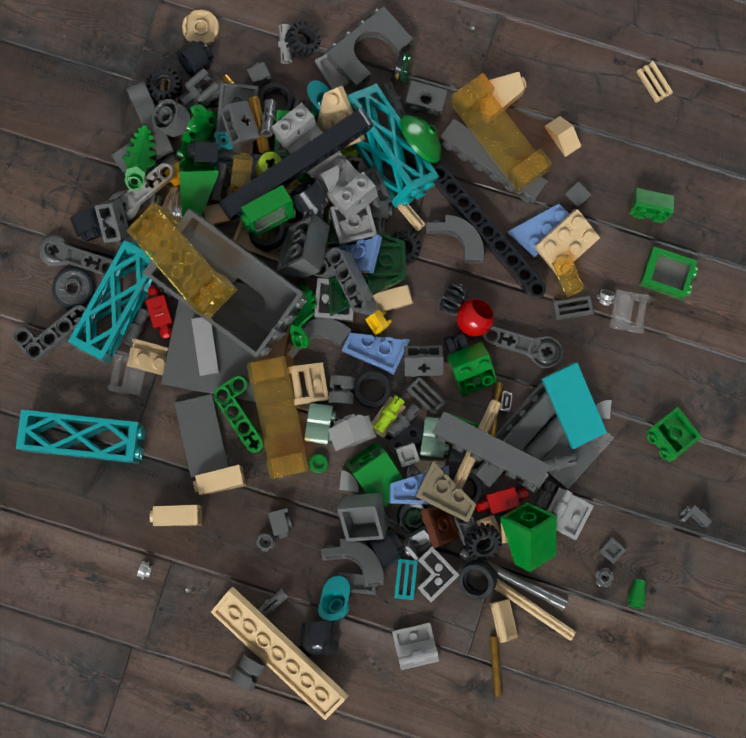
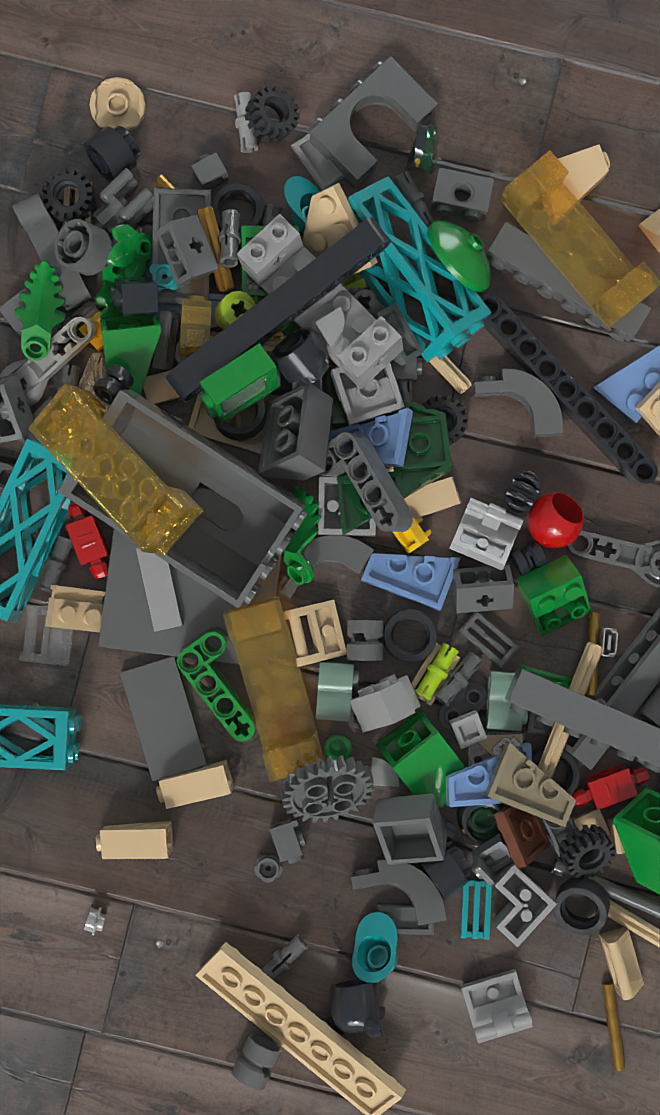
camera: 10 degrees left, 5 degrees up
(185, 202) = (115, 379): none -> black wheel
(294, 487) = (307, 790): none -> dark grey gear
(428, 323) = (486, 533): none -> light grey plate

